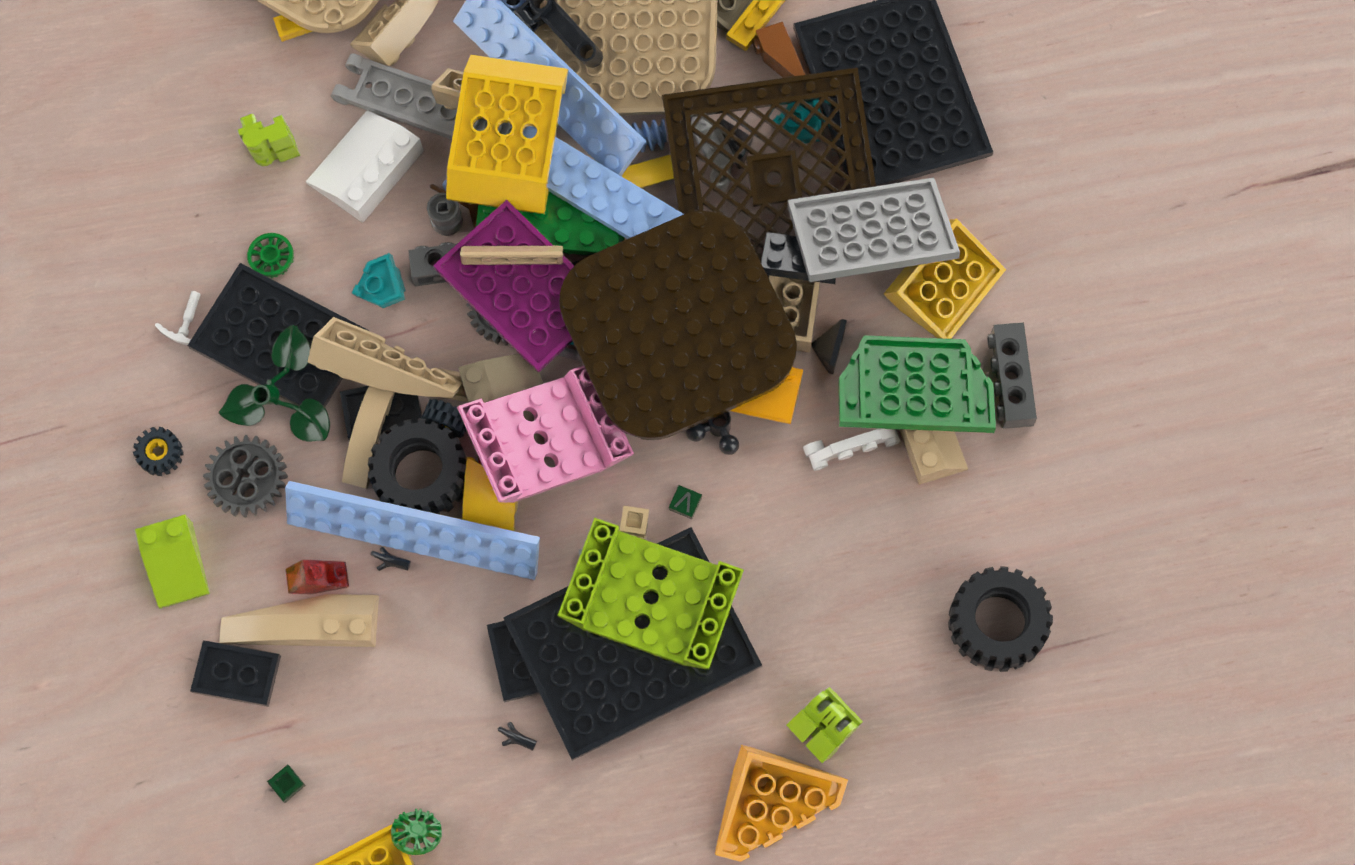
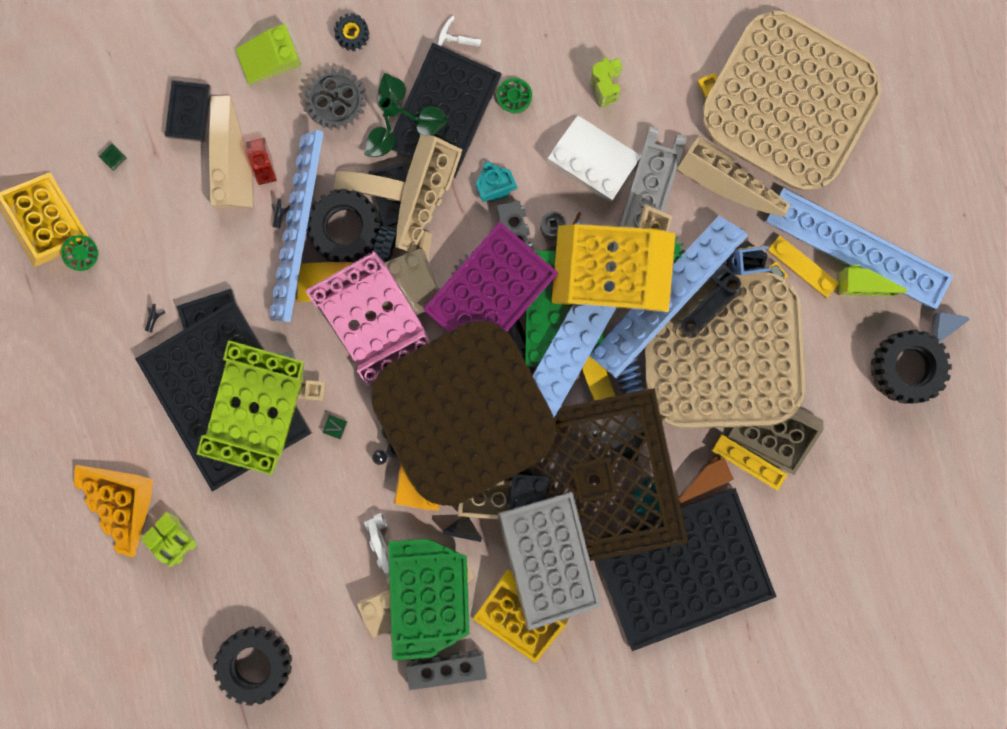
camera: 80 degrees right, 15 degrees up
(511, 255) = (512, 281): tan slope -> none

